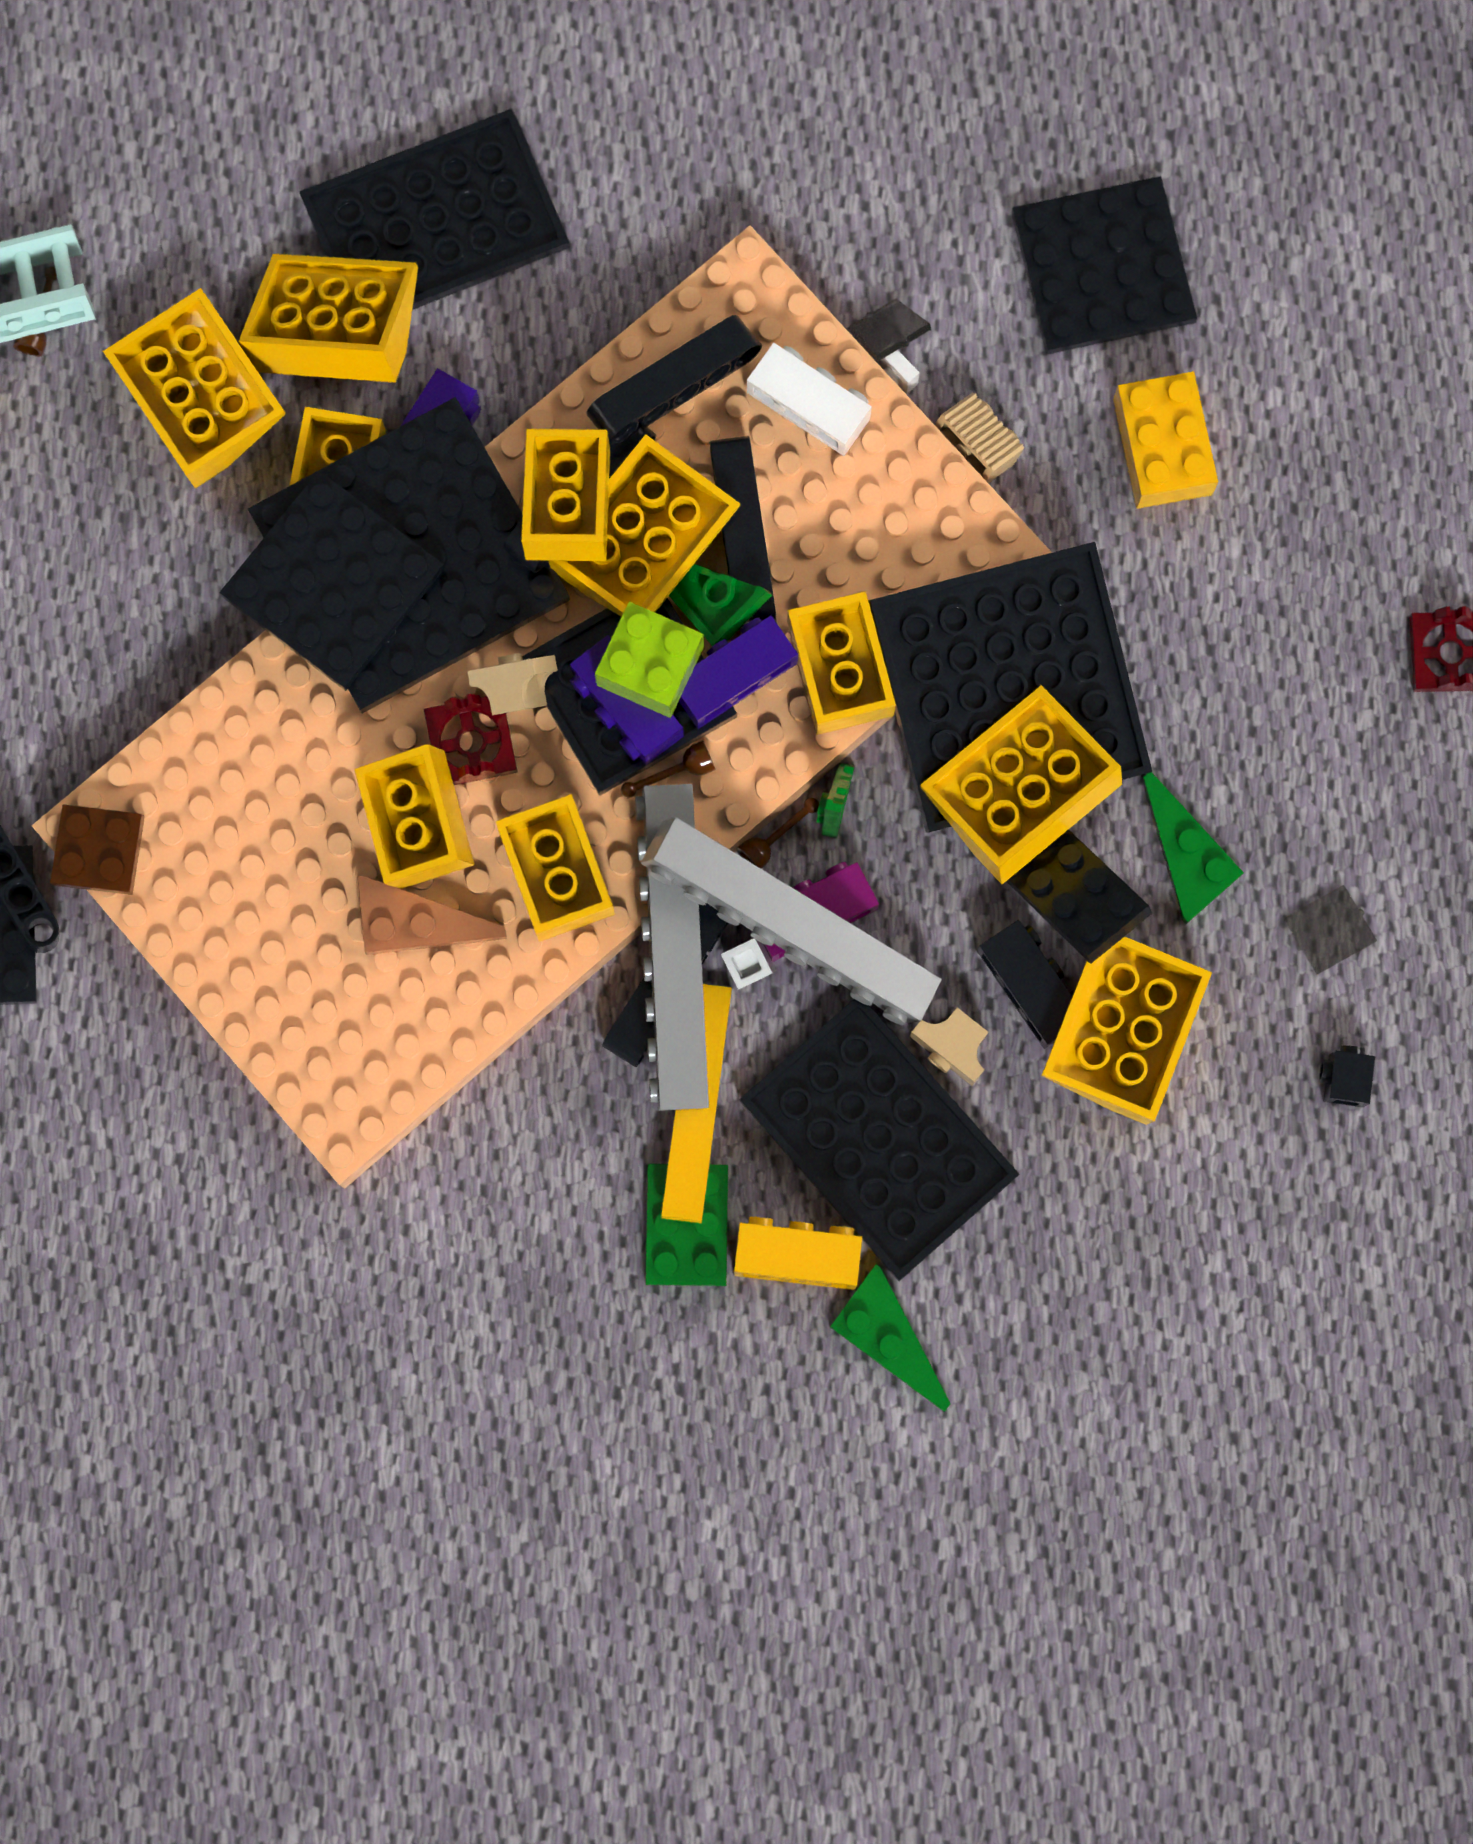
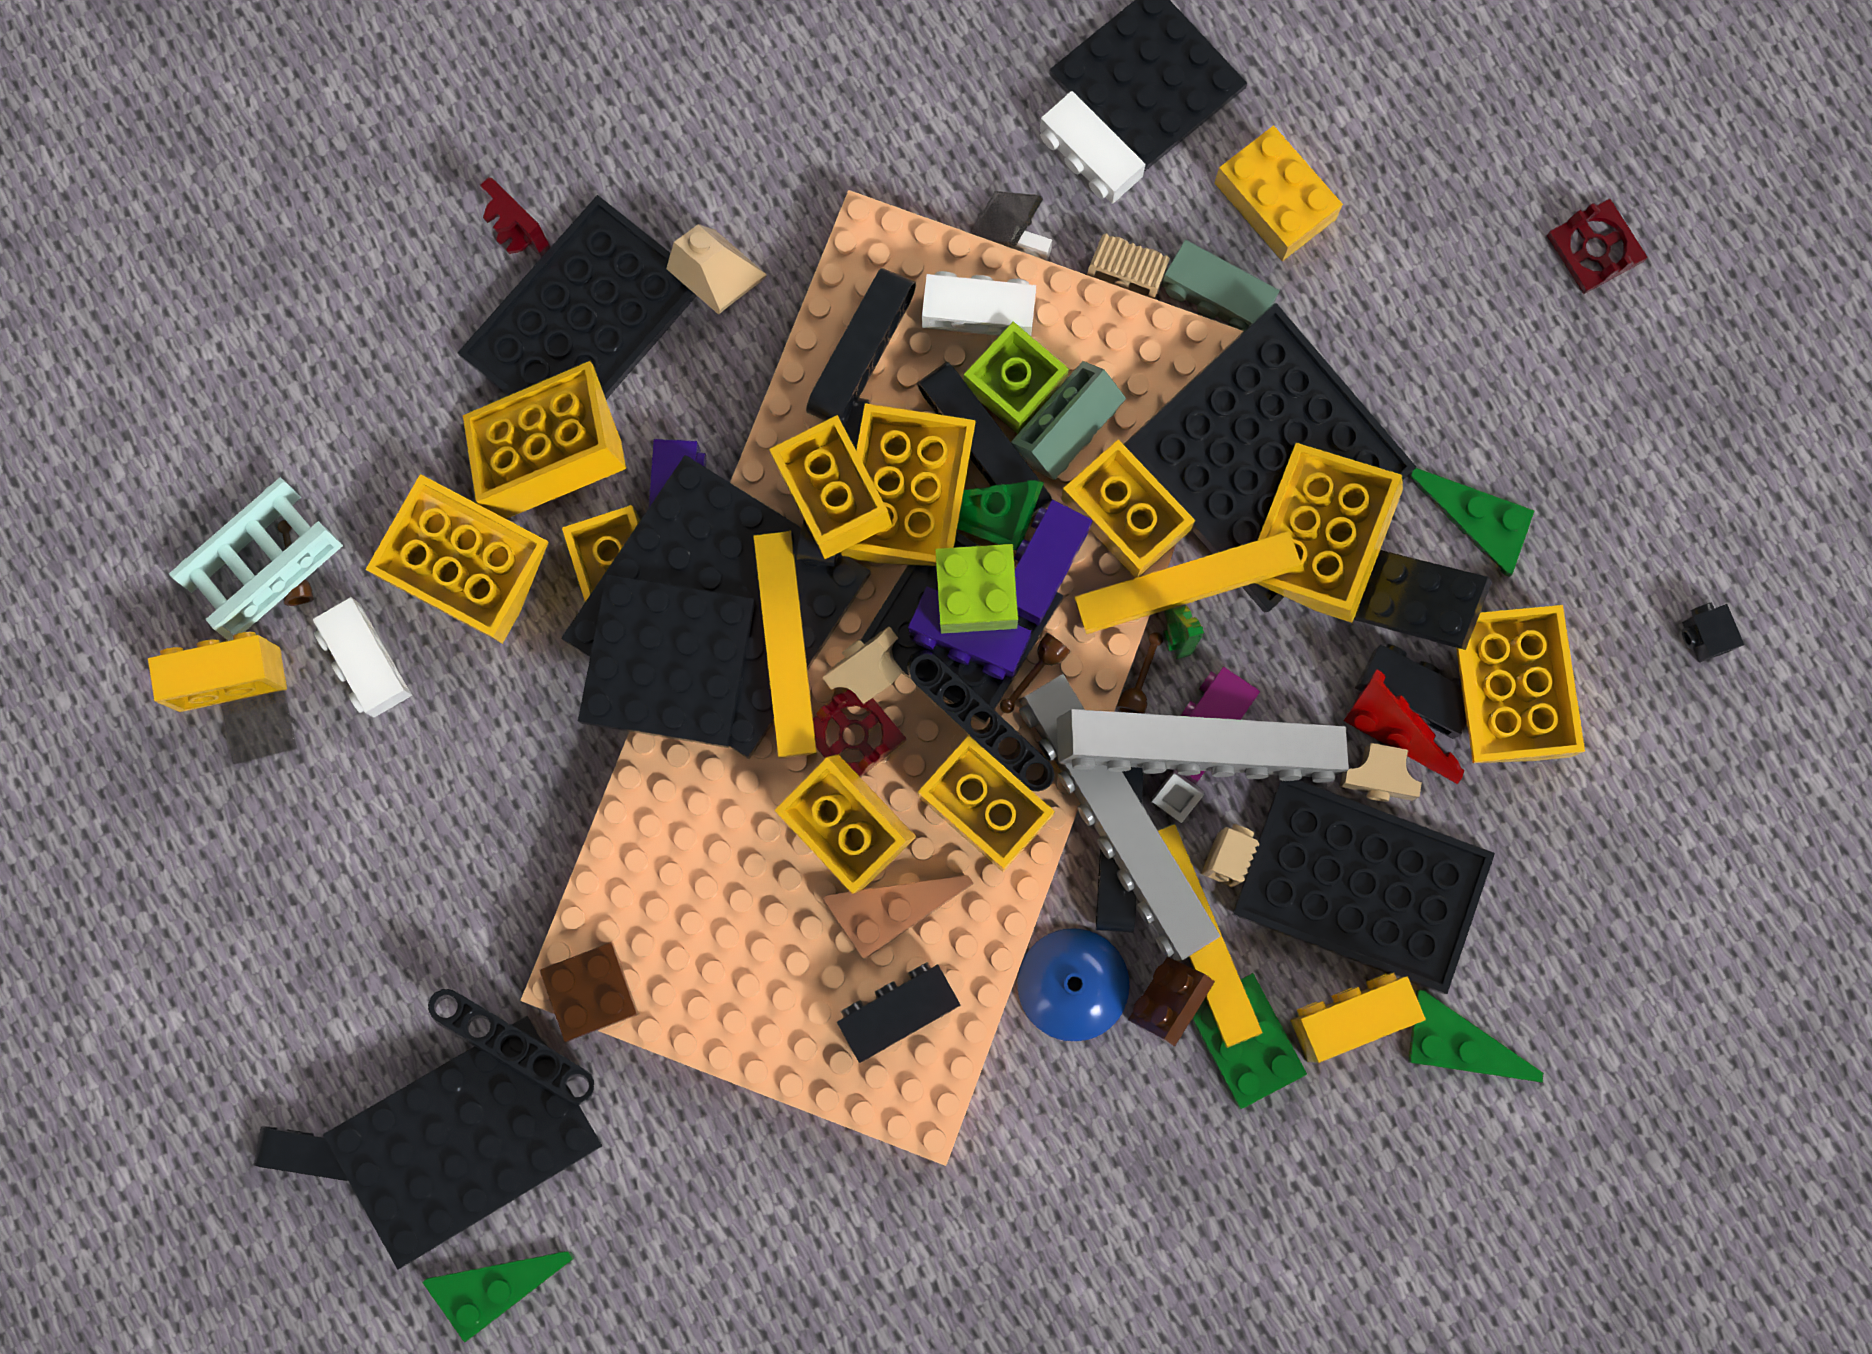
camera: 25 degrees left, 0 degrees up
(56, 433) = (360, 658): none -> white brick
(369, 1017) = (897, 1011): none -> black brick
(415, 92) = (513, 221): none -> dark red piece
(449, 622) = (785, 645): none -> yellow tile
(558, 1115) = (1045, 989): none -> blue dish
(583, 233) = (712, 267): none -> tan slope
(589, 807) = (990, 736): none -> black beam
(632, 1145) = (1171, 1000): none -> reddish brown plate
(764, 1041) = (1230, 855): none -> tan brick
(804, 484) = (1015, 377): none -> lime brick
(832, 550) = (1068, 420): none -> sand green brick
(862, 762) = (1188, 582): none -> yellow tile
(993, 1006) = (1396, 725): none -> red wing
(1008, 304) = (1091, 148): none -> white brick
(1055, 499) = (1217, 287): none -> sand green brick
(1330, 929) = (1626, 520): clear smoke piece -> none

